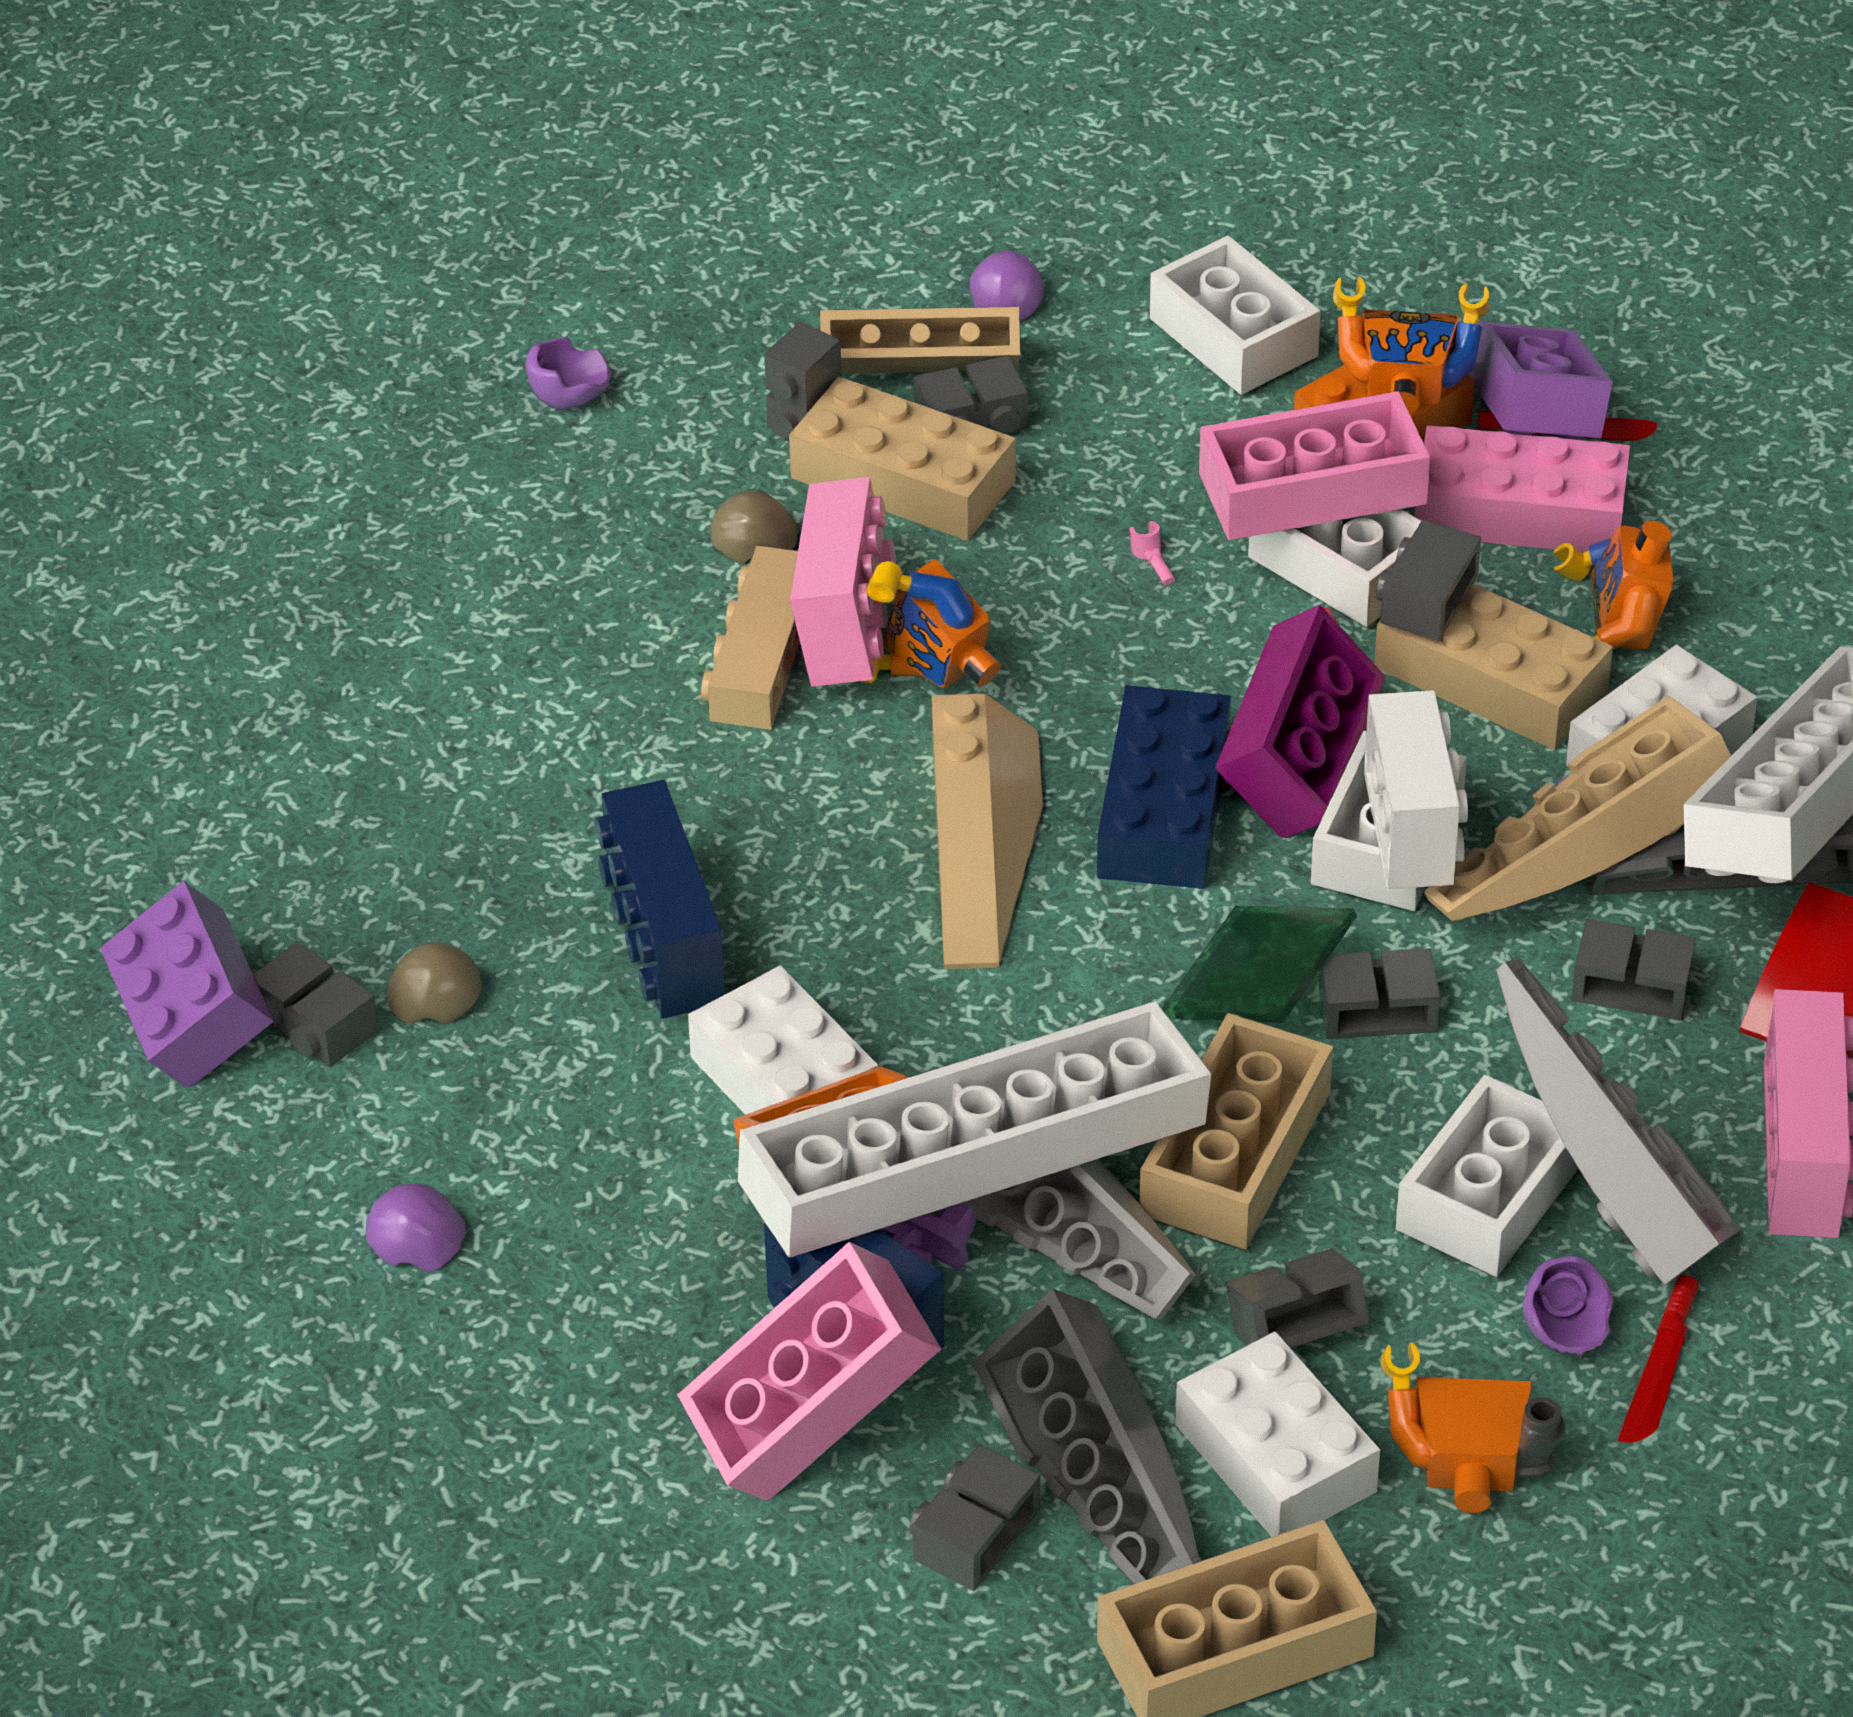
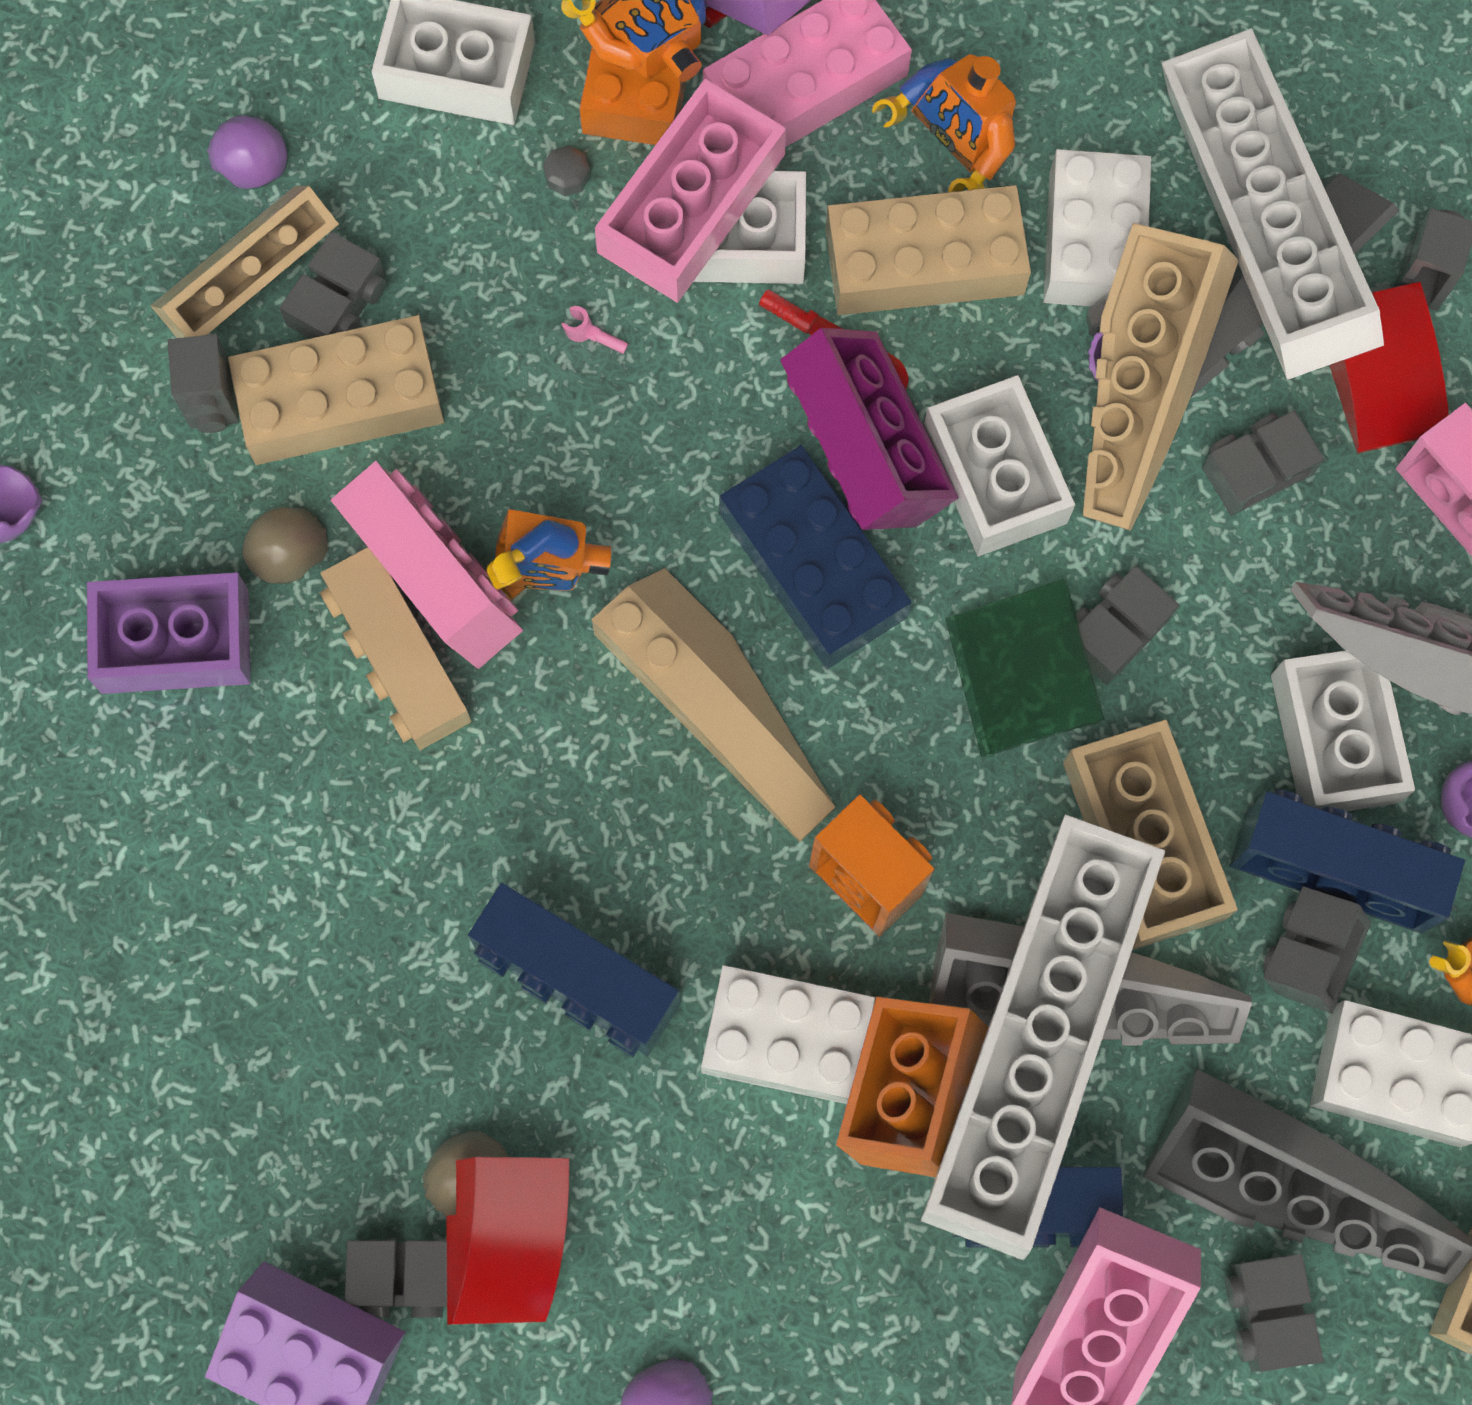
camera: 45 degrees left, 30 degrees up
(414, 1021) = (506, 1239): none -> red slope
(602, 516) = (168, 633): none -> medium lavender brick
(971, 966) = (871, 863): none -> orange brick
(1408, 1267) = (1359, 863): none -> dark blue brick
(1414, 789) = (1046, 456): white brick -> none
(1429, 579) = (862, 233): dark grey piece -> none

